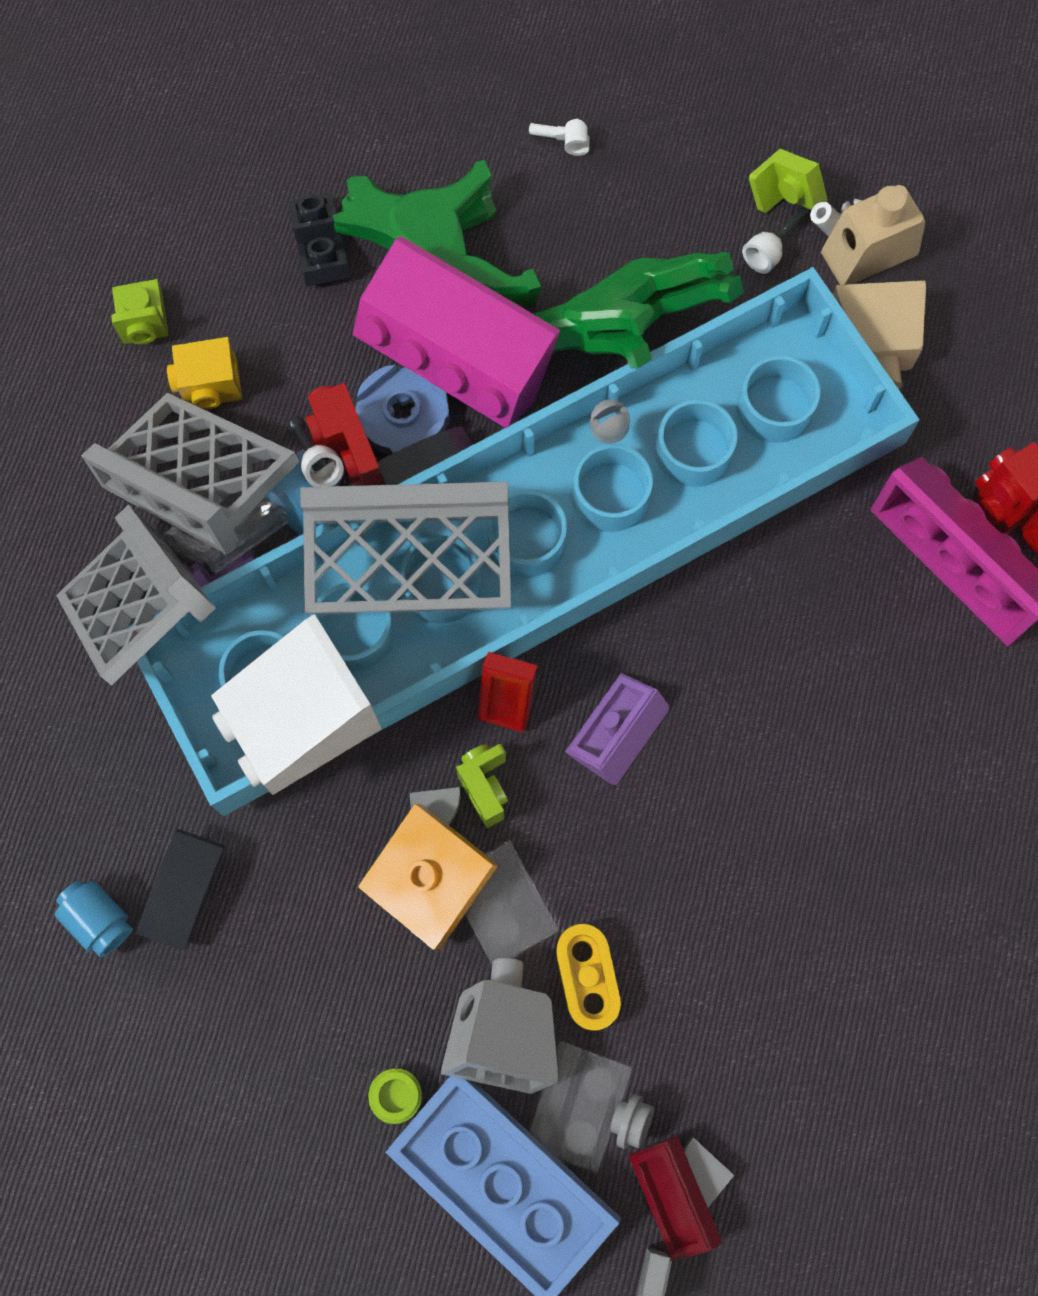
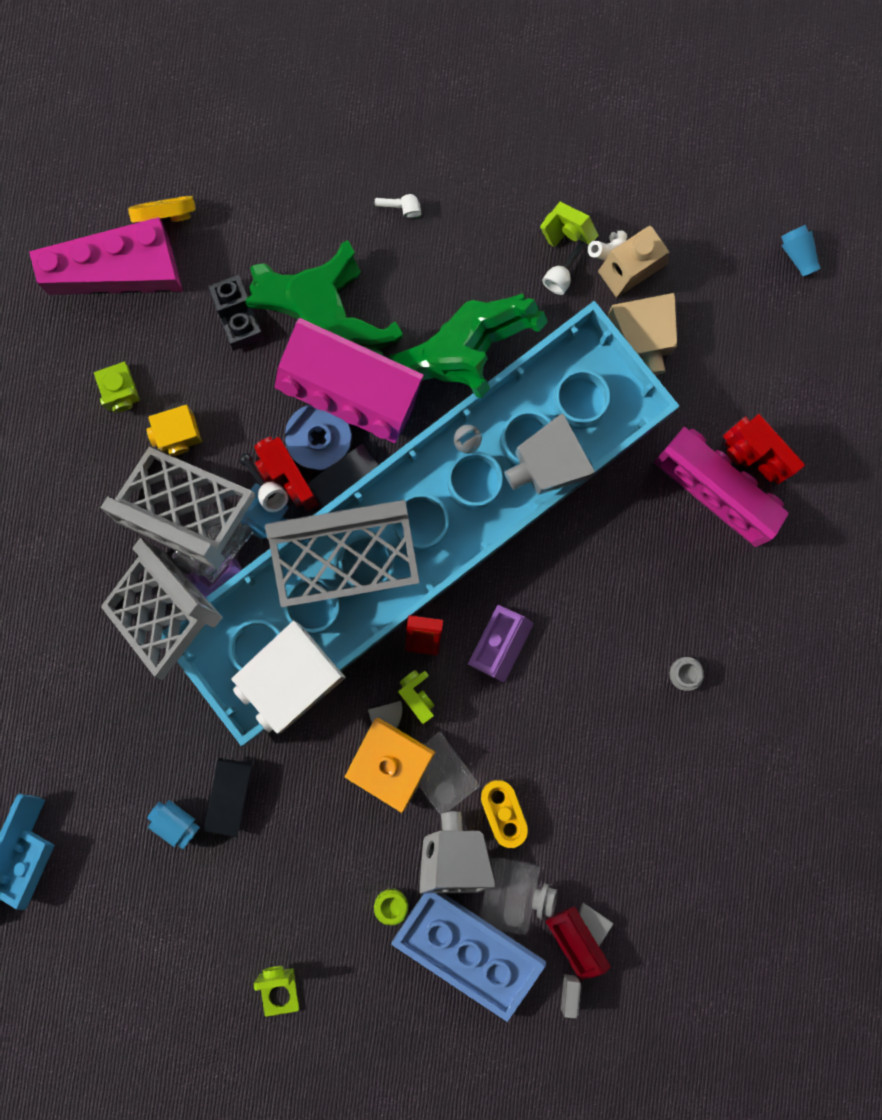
camera: 15 degrees left, 10 degrees up
(161, 150) = (110, 261): none -> dark pink wedge
(197, 1178) = (277, 977): none -> lime bracket
(226, 101) = (176, 208): none -> yellow plate
(725, 461) = (550, 459): none -> light grey torso
(888, 810) = (686, 674): none -> light grey plate

